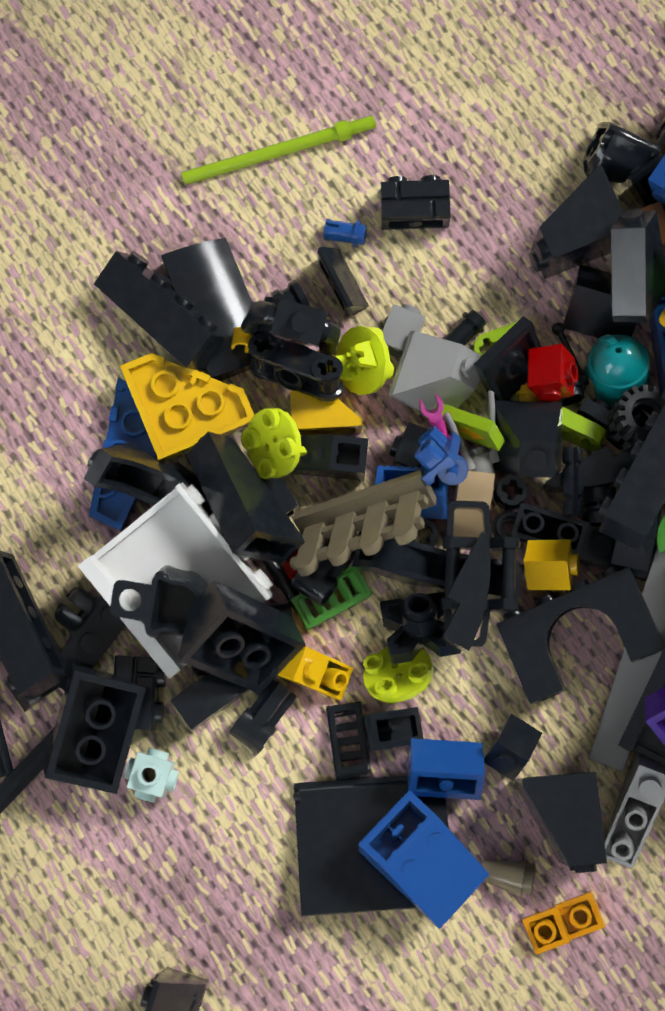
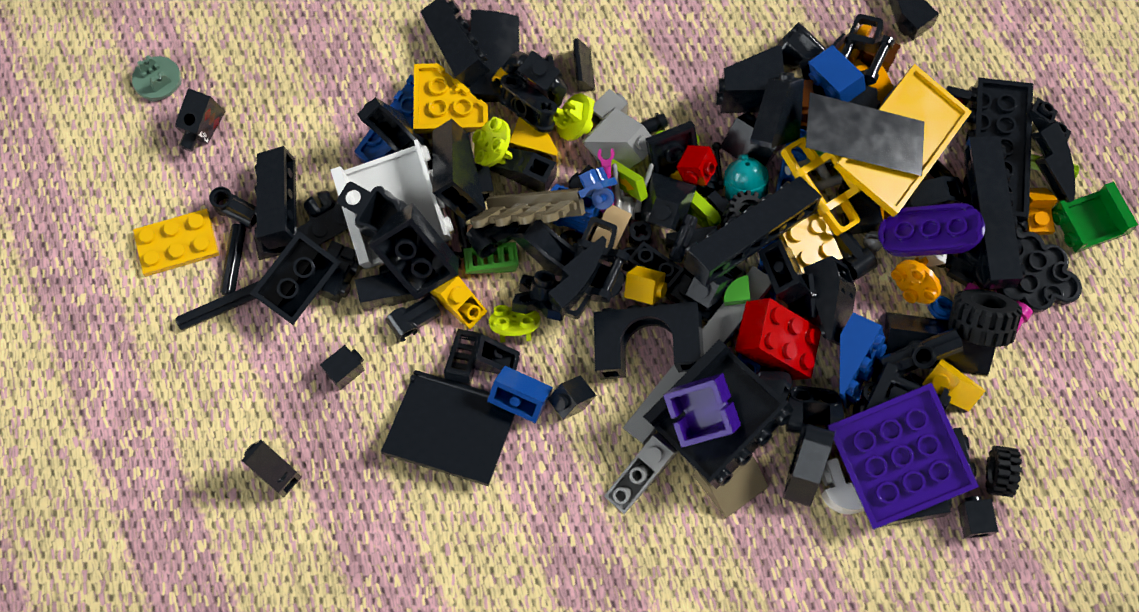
camera: 20 degrees right, 10 degrees down
(165, 778) = (322, 326): light aqua brick -> none
(201, 817) = (343, 366): none -> black brick
(345, 232) = (598, 38): blue pin -> none
(415, 203) = (651, 35): black brick -> none
(423, 859) = (477, 442): blue slope -> none
(511, 876) = (536, 484): dark tan cone -> none
(563, 922) = (560, 530): light orange slope -> none
(568, 816) = (590, 452): black slope -> none

